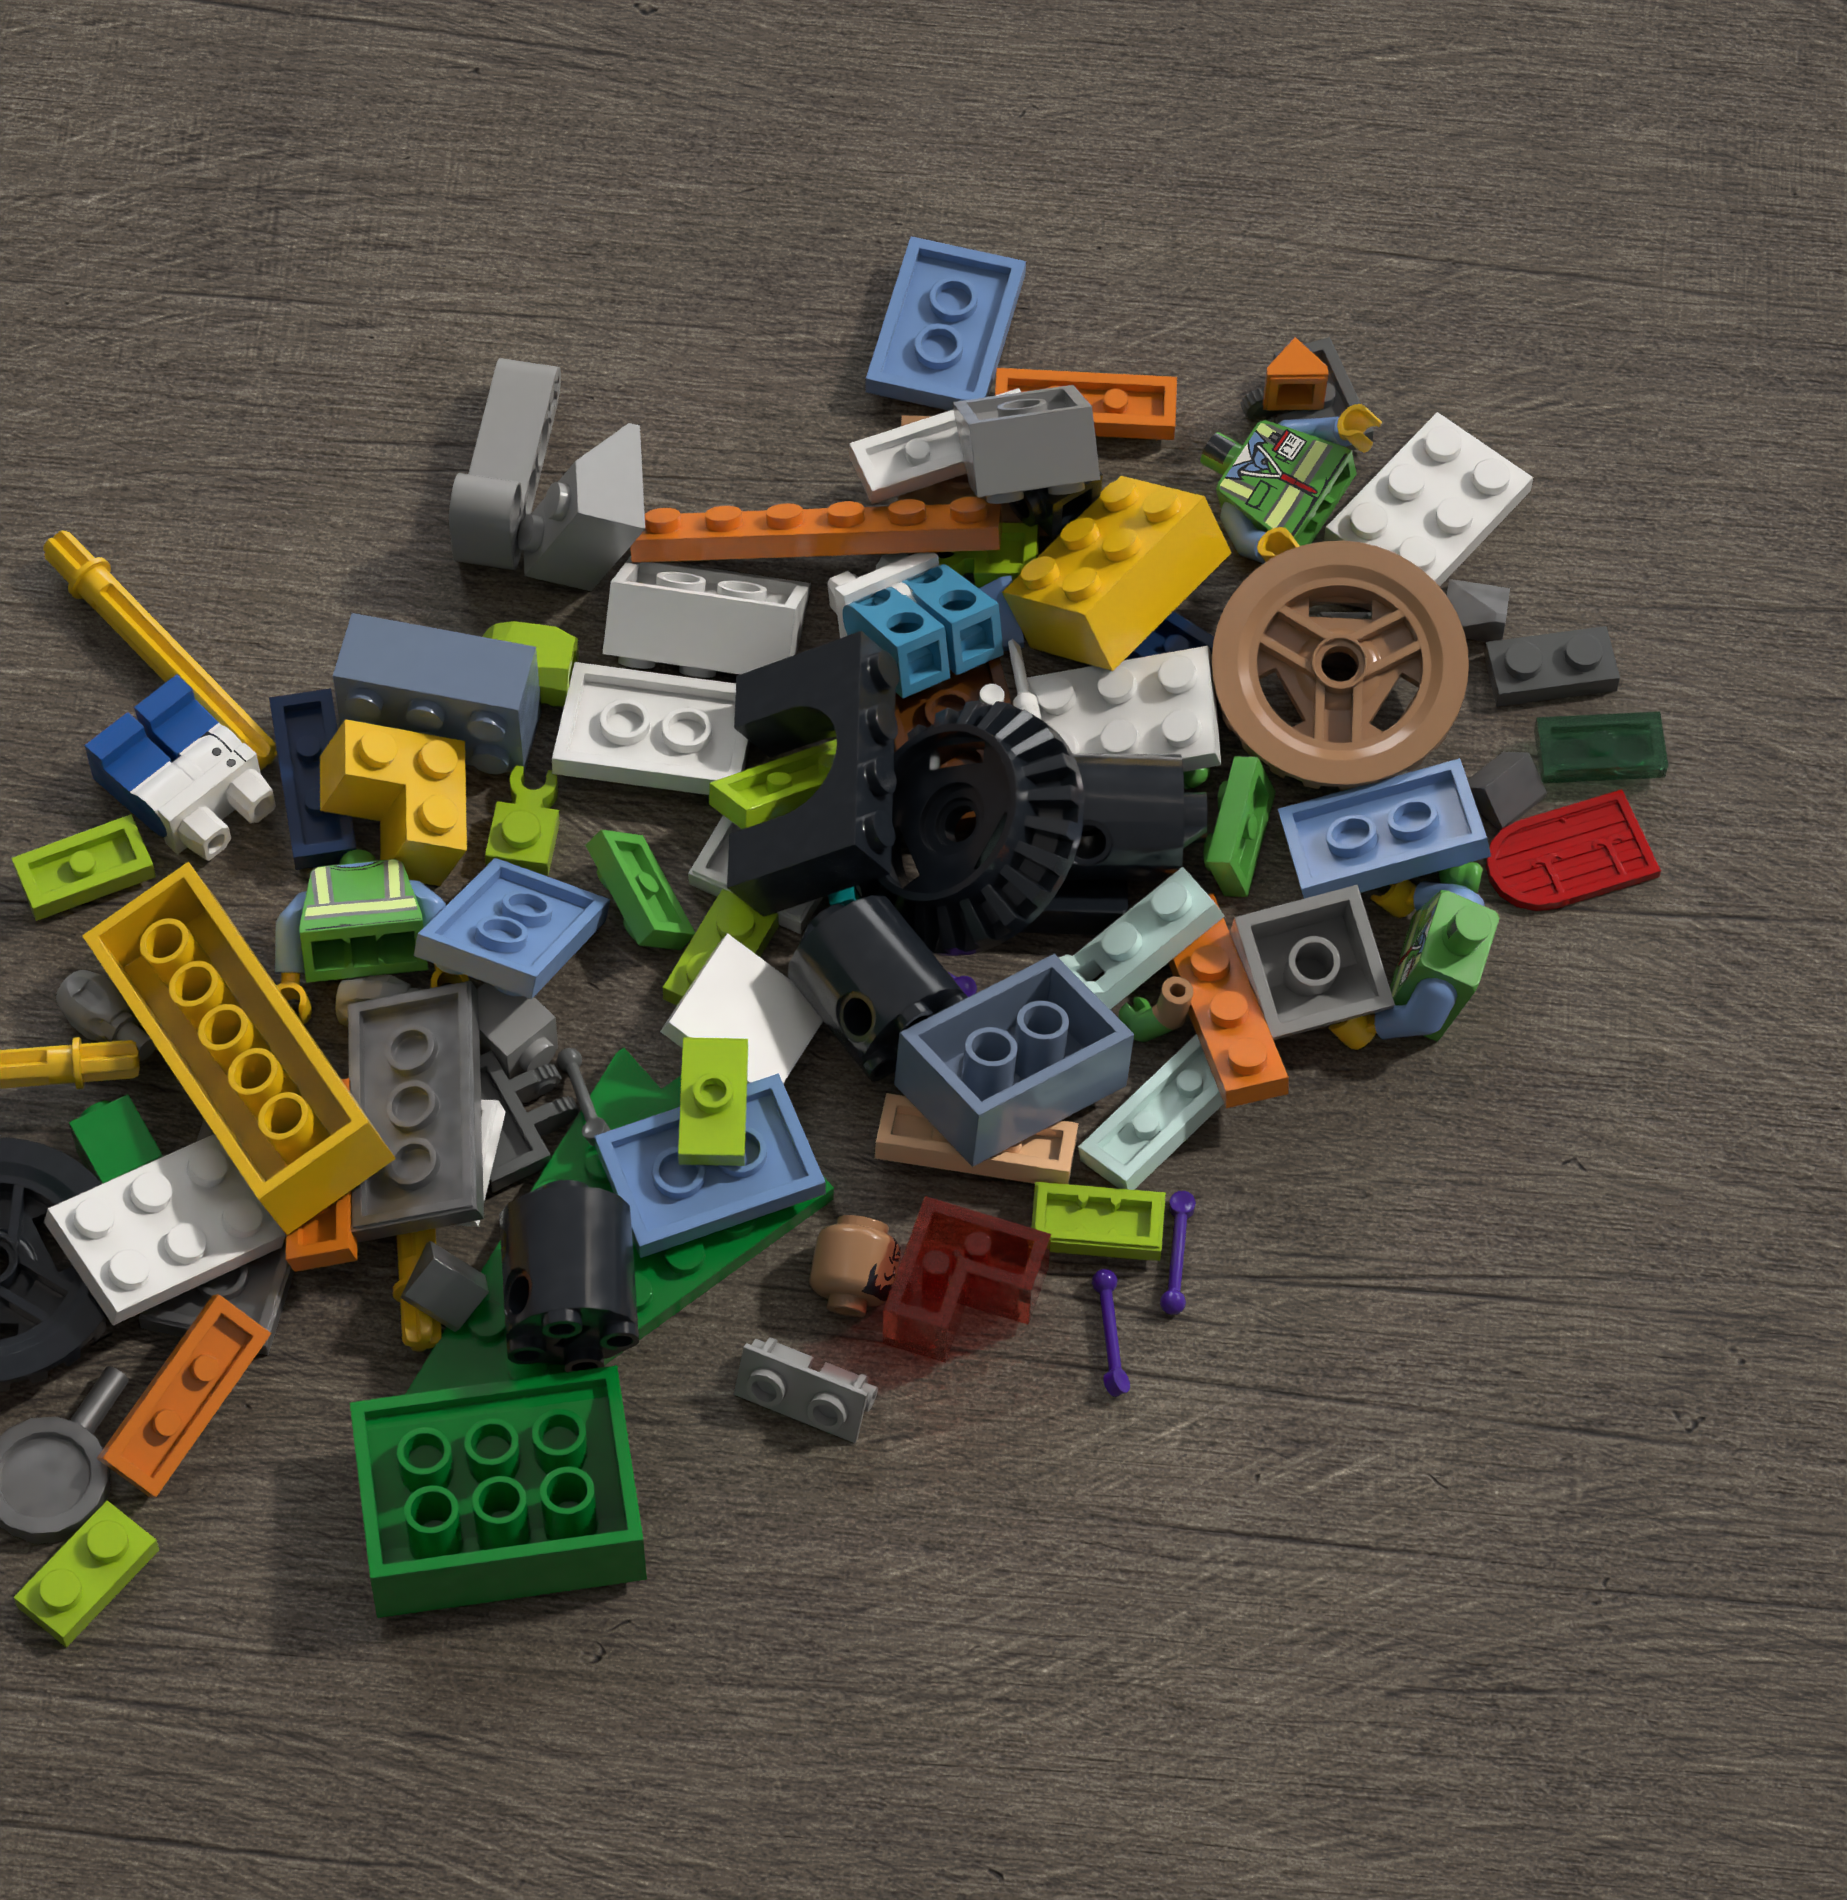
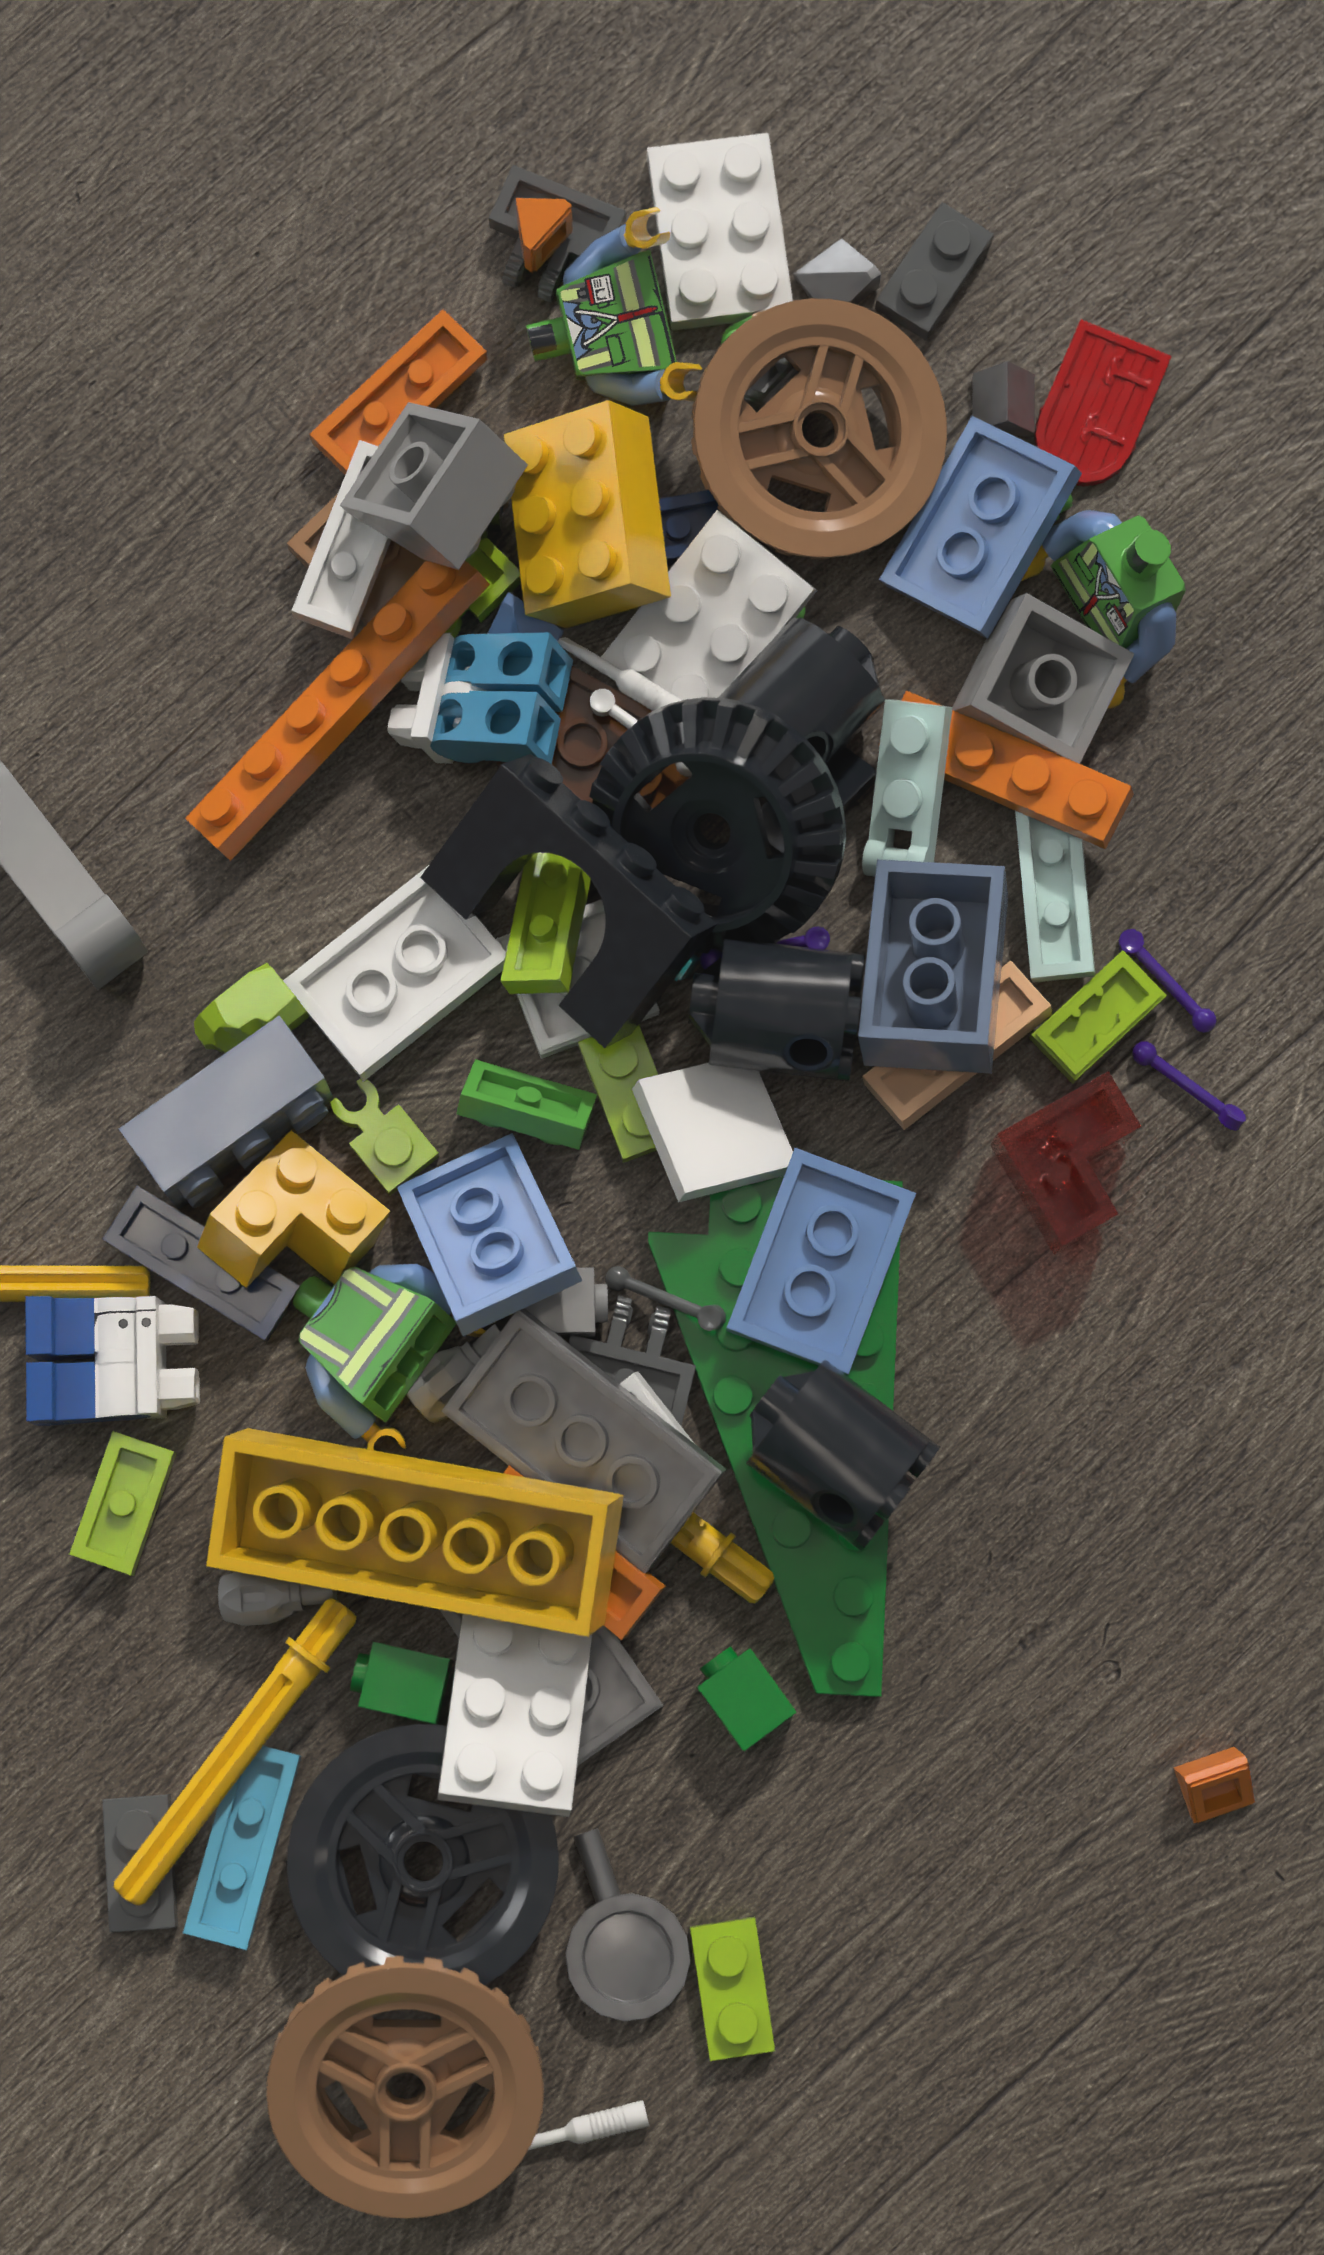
camera: 50 degrees left, 20 degrees up
(184, 1396) = (659, 1804): orange plate -> none
(319, 1393) = (744, 1696): none -> green brick
(445, 1287) = (745, 1537): flat silver slope -> none
(497, 1491) = (943, 1639): green slope -> none
(570, 1796) = (1215, 1784): none -> orange slope
(588, 515) = (167, 858): light grey slope -> none
(702, 618) = (335, 847): white slope -> none
(713, 1101) = (782, 1218): lime plate -> none
(785, 1383) = (1071, 1333): light grey hinge -> none
(854, 1264) = (983, 1223): medium nougat head -> none
(945, 325) = (231, 435): medium blue plate -> none
(1162, 1018) = (979, 819): arm -> none
(1240, 826) = (855, 601): bright green plate -> none
(1600, 747) = (1038, 302): clear green plate -> none

